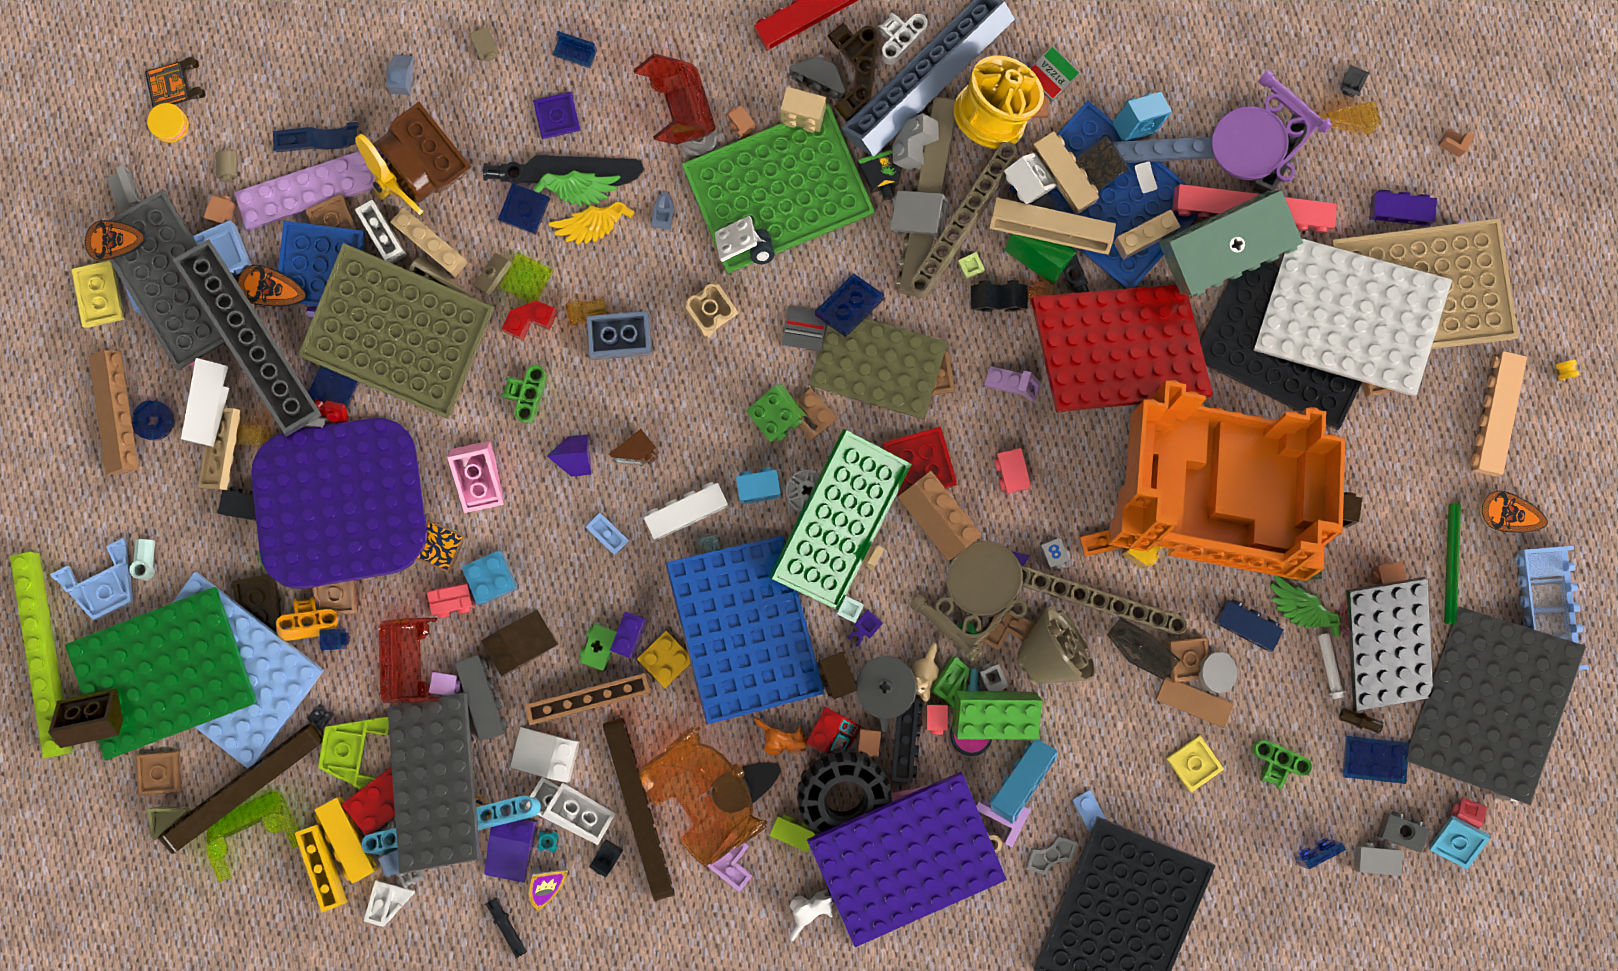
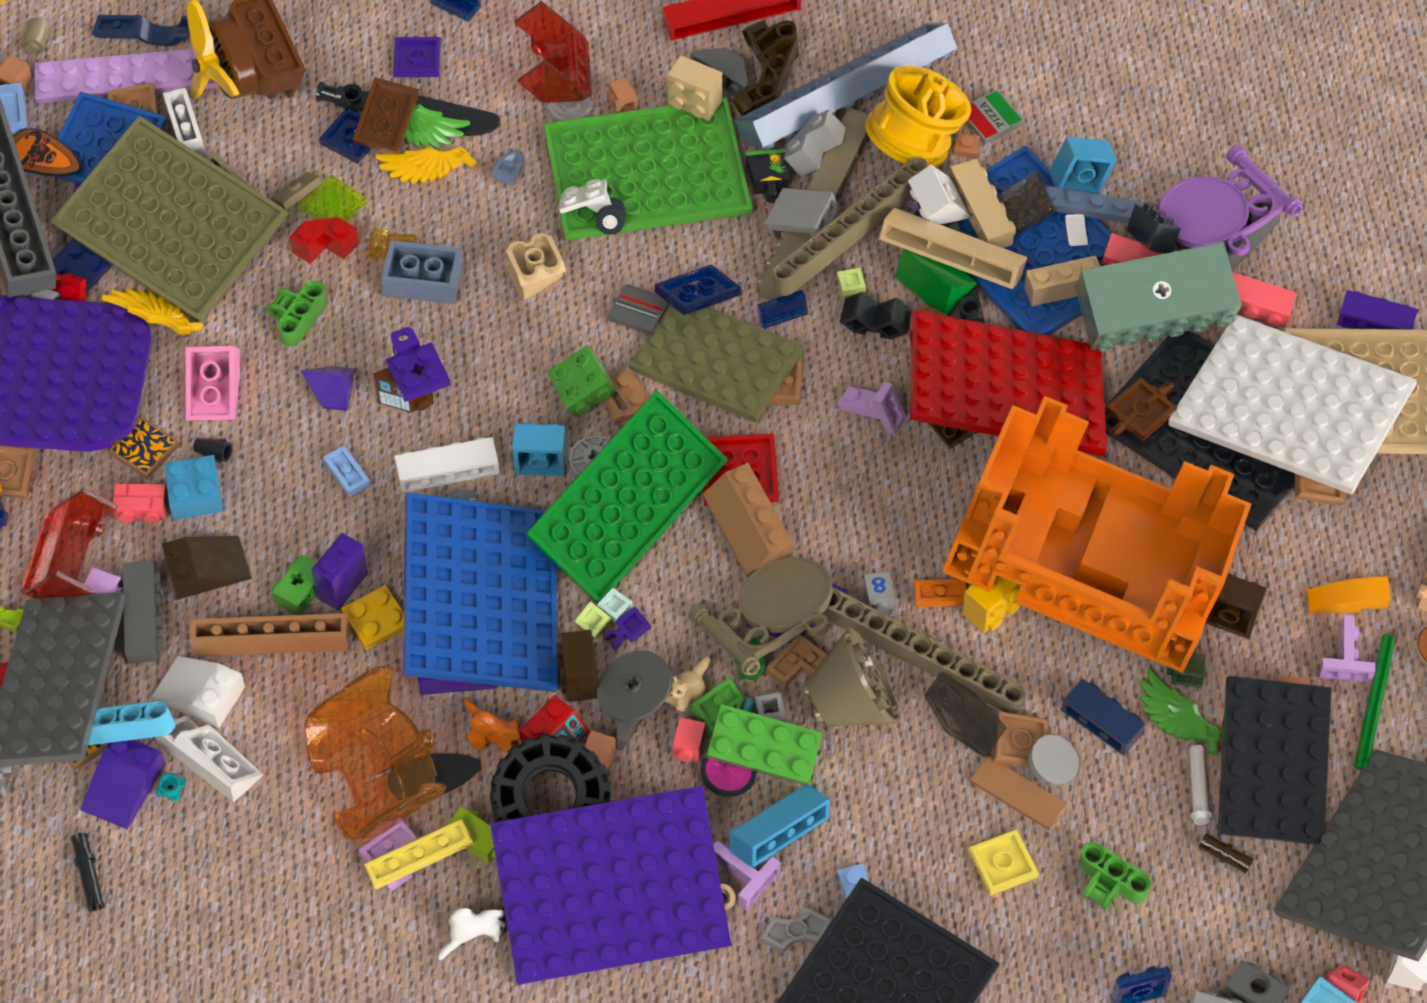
camera: 10 degrees right, 25 degrees down
(407, 417) = (153, 310): none -> yellow animal
(429, 242) = (235, 145): tan brick -> none
(496, 536) = (210, 446): none -> black cone
(544, 886) = (150, 831): shield -> none
(549, 191) = (386, 116): none -> reddish brown plate
(606, 858) = (237, 816): black bracket -> none
(635, 434) = (412, 356): none -> dark purple plate
(638, 810) = (292, 773): dark brown beam -> none
(755, 863) = (418, 854): none -> light yellow tile
(836, 626) = (593, 619): none -> yellowish green plate
(873, 556) = (658, 553): tan tile -> none
(894, 29) = (826, 50): white piece -> none
(905, 744) = (642, 756): black brick -> none
(921, 306) = (782, 309): none -> clear blue tile
(1012, 471) = (849, 496): coral brick -> none
(1213, 173) = (1153, 228): none -> black brick
(1231, 343) = (1141, 409): none -> reddish brown plate
(1353, 81) = (1341, 183): black bracket -> none
(1356, 118) = (1333, 218): clear yellow slope -> none
(1375, 759) = (1237, 903): clear blue plate -> none
(1420, 476) = (1350, 595): none -> light orange slope
(1426, 528) = (1348, 666): none -> lavender bracket

